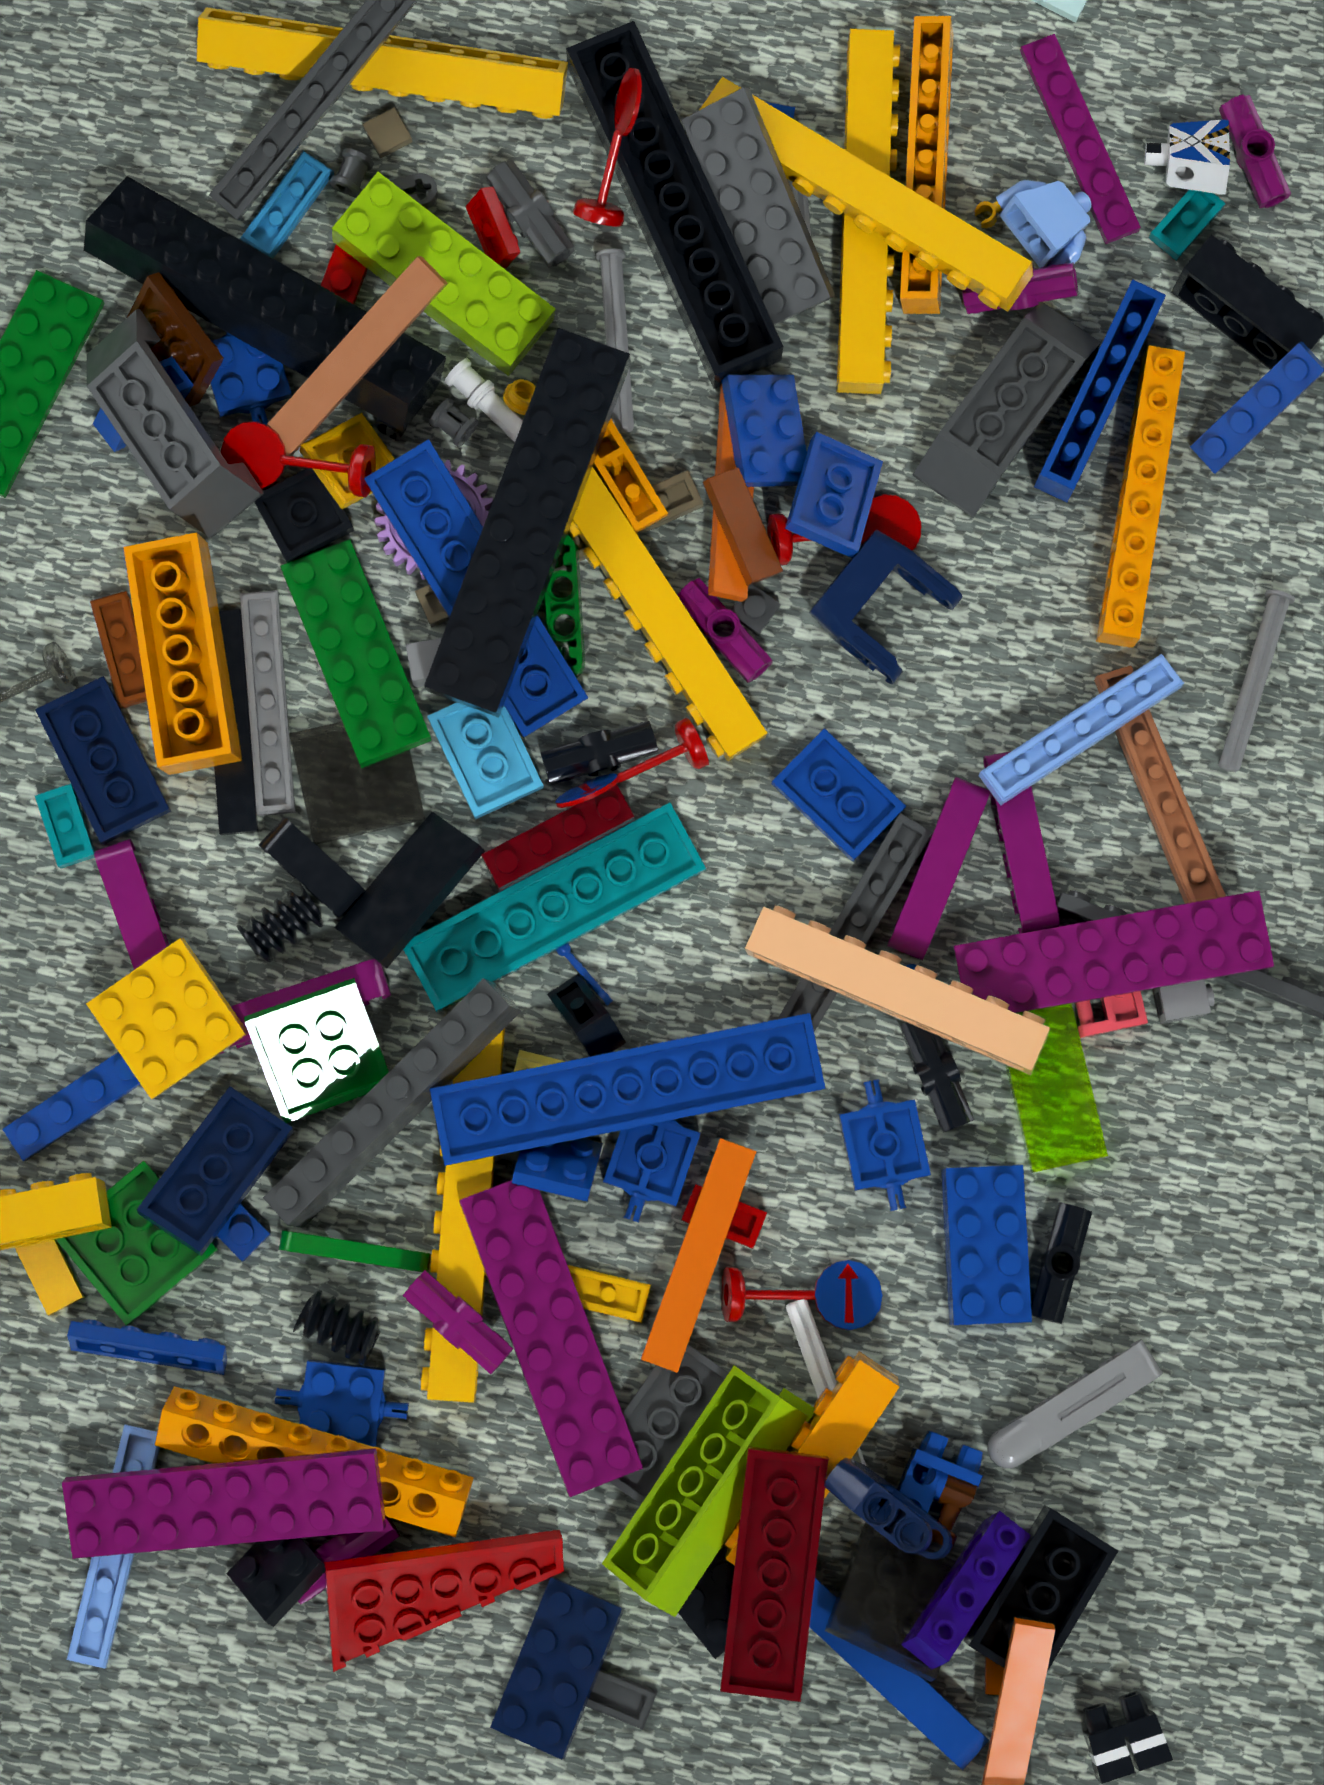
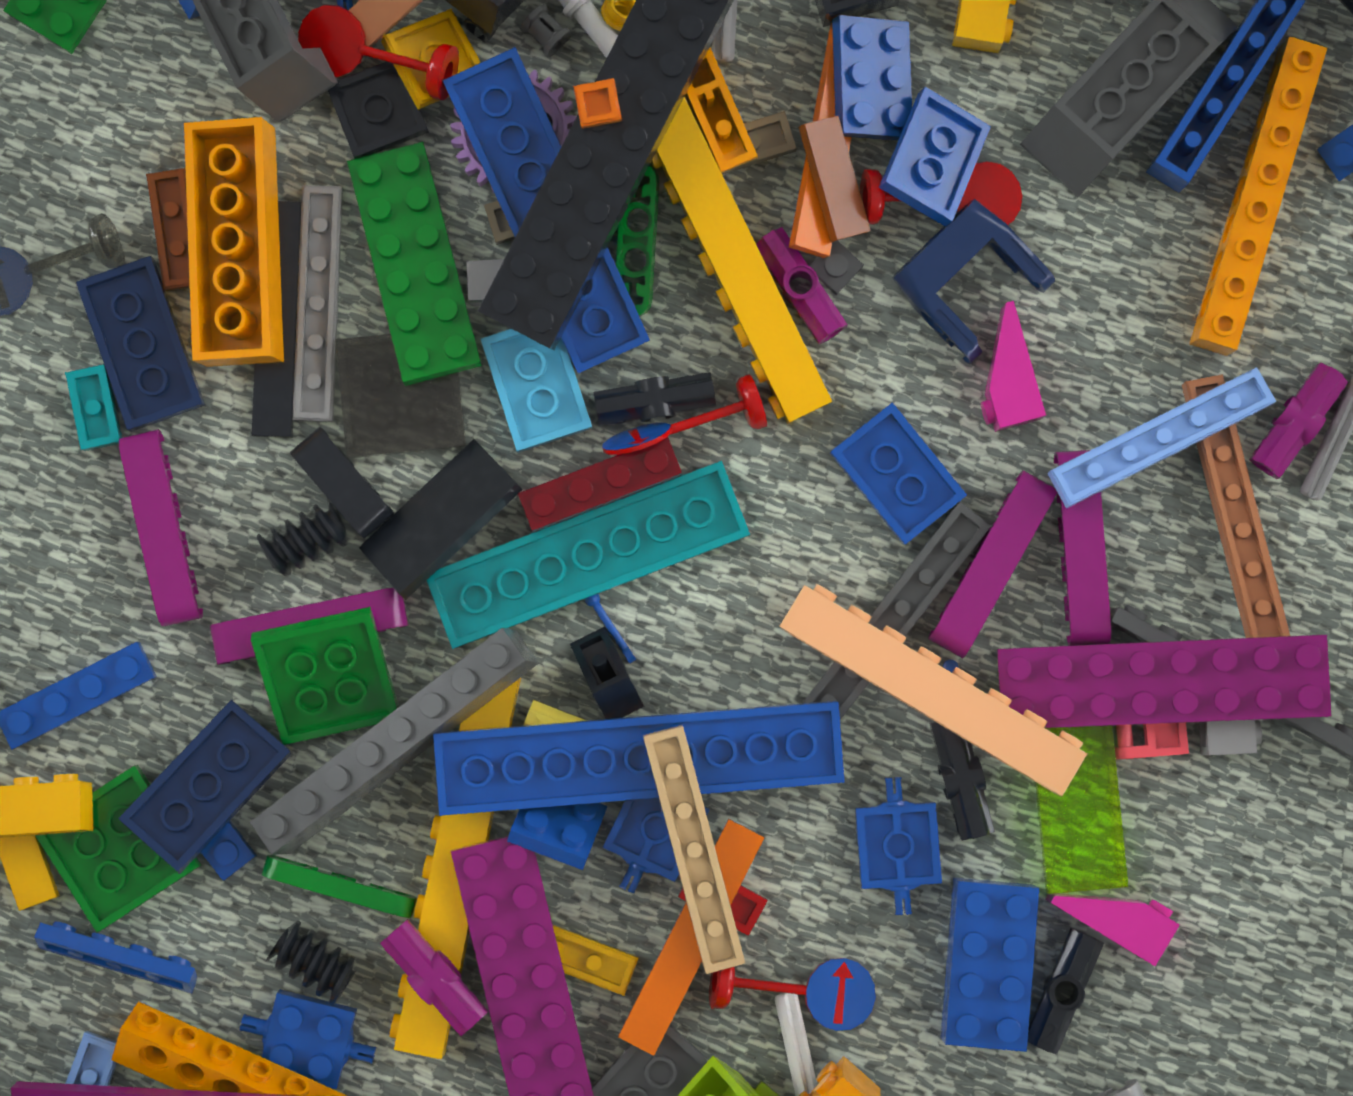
camera: 15 degrees right, 5 degrees up
(167, 1018) = (173, 623): yellow plate -> none
(514, 479) = (597, 103): none -> orange tile
(691, 1167) = (694, 849): none -> tan plate
(934, 699) = (1011, 382): none -> dark pink slope
(1113, 1191) = (1128, 922): none -> dark pink slope
(1208, 699) = (1299, 420): none -> magenta piece

